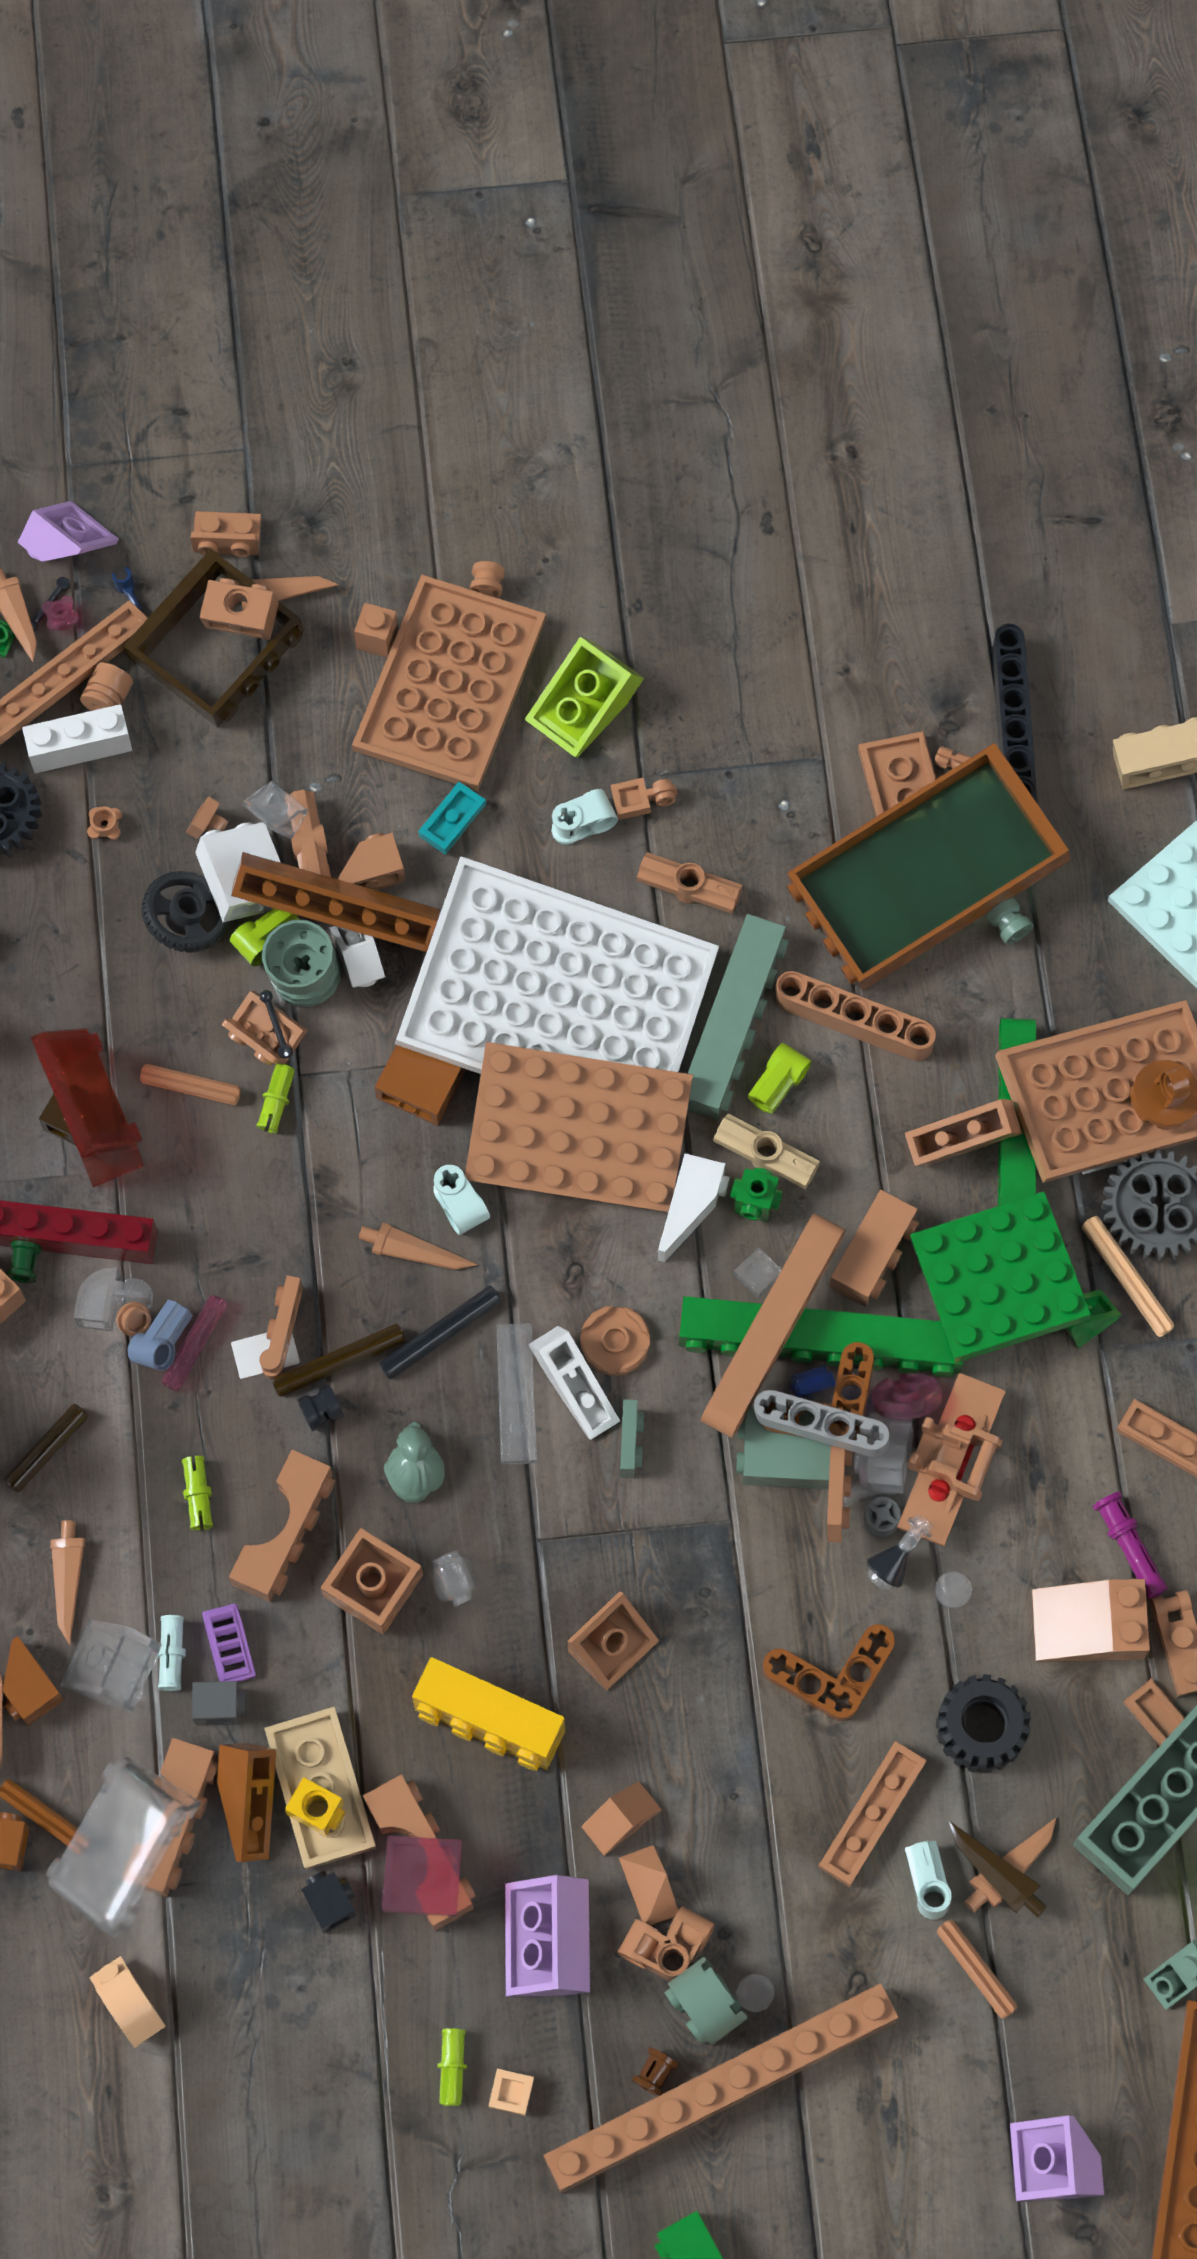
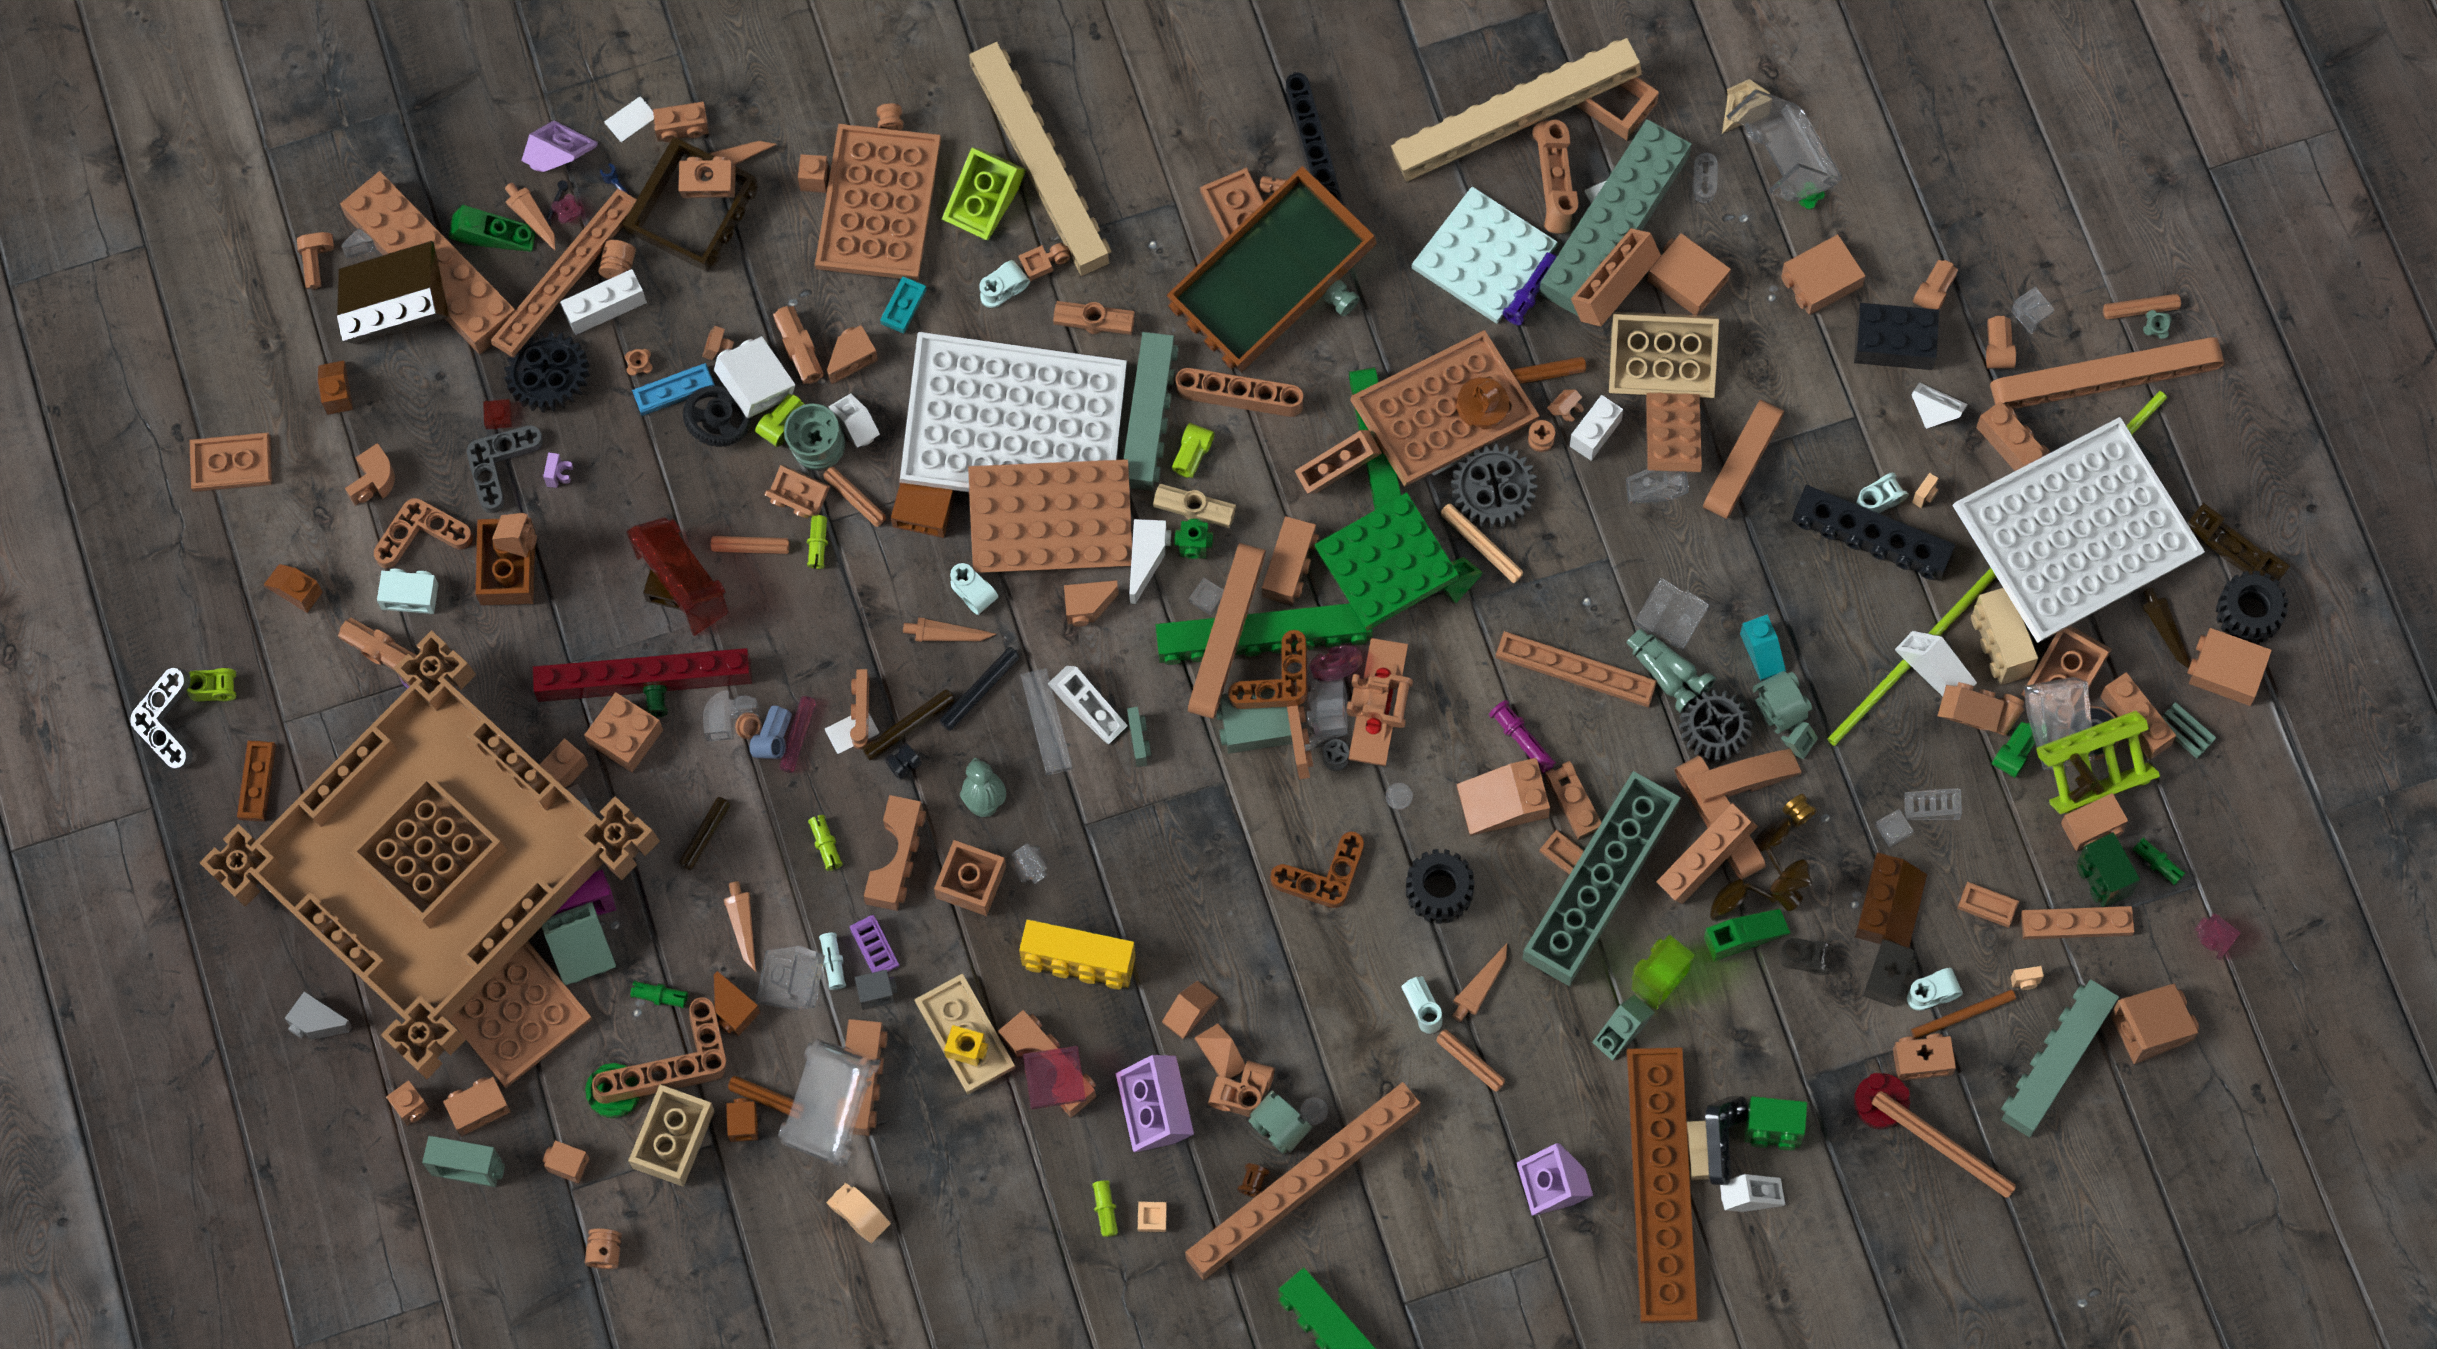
camera: 10 degrees left, 0 degrees up
(138, 865) = (672, 389): none -> dark azure tile
(165, 518) = (630, 119): none -> white sticker
(246, 1793) = (912, 1047): dark orange slope -> none
(276, 809) = (769, 324): clear slope -> none
(284, 1051) = (816, 504): black hinge -> none
(329, 1900) = (989, 1111): black brick -> none
(335, 902) = (830, 385): dark orange brick -> none
(336, 1049) = (854, 496): none -> nougat axle
(604, 1247) = (1088, 601): none -> nougat slope
(612, 1641) = (1156, 884): nougat slope -> none
(615, 1340) = (1111, 668): nougat tile -> none
(664, 670) = (1039, 158): none -> tan brick
(811, 1382) = (1263, 666): clear blue slope -> none
(823, 1419) = (1276, 697): light grey beam -> none
(872, 1814) = (1372, 967): nougat plate -> none
(889, 1566) = (1349, 787): piece -> none
(1006, 1879) = (1480, 993): dark brown bar -> none

